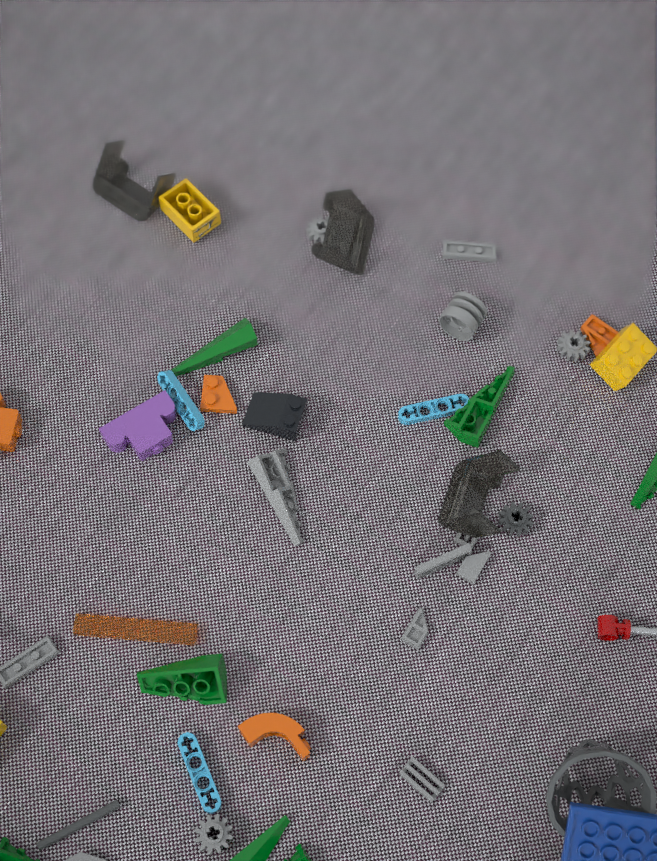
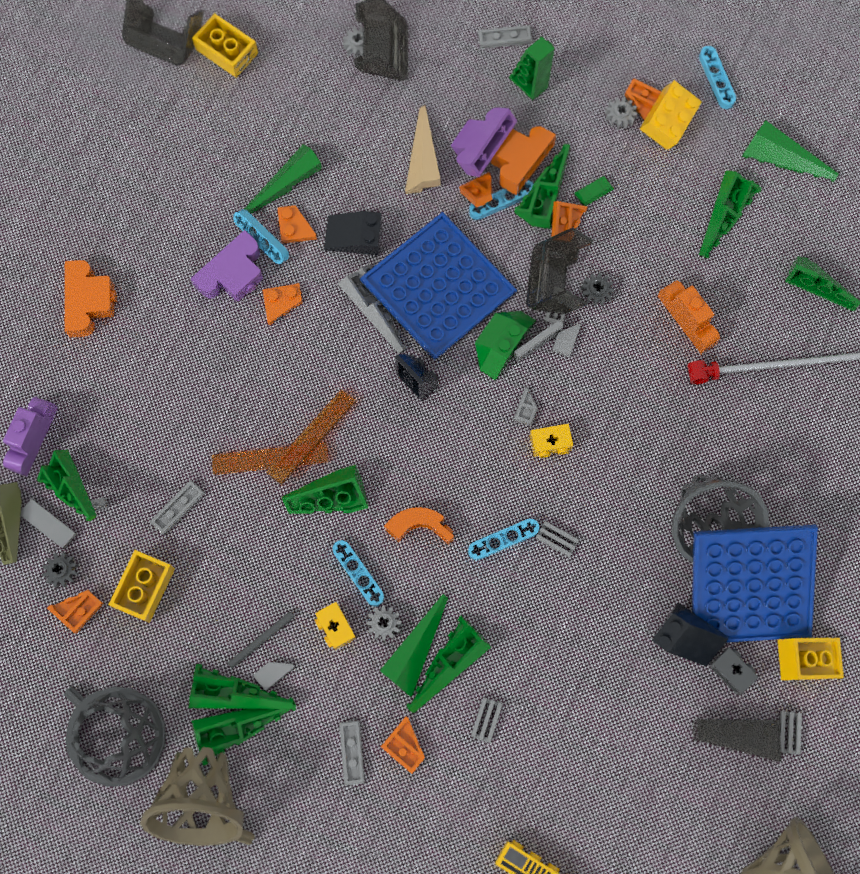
camera: 10 degrees left, 10 degrees up
(169, 836) = (344, 633): none -> yellow brick
(182, 615) = (311, 437): none -> clear orange tile
(186, 468) = (281, 300): none -> orange wing
(306, 571) = (415, 375): none -> black slope
(350, 484) = (438, 285): none -> blue tile
(361, 358) = (423, 164): none -> tan wedge
(364, 771) = (504, 541): none -> medium azure beam
(403, 552) = (500, 340): none -> green wedge
(411, 395) = (478, 190): none -> orange wing
(424, 346) = (481, 140): none -> medium lavender brick
(446, 666) = (559, 434): none -> yellow brick
(462, 369) = (521, 156): none -> orange brick
(463, 316) = (516, 97): light grey wheel -> none
(493, 284) = (534, 68): none -> green wedge
(497, 438) = (566, 216): none -> orange wing
(531, 418) = (594, 191): none -> green tile
(610, 565) = (691, 314): none -> orange brick

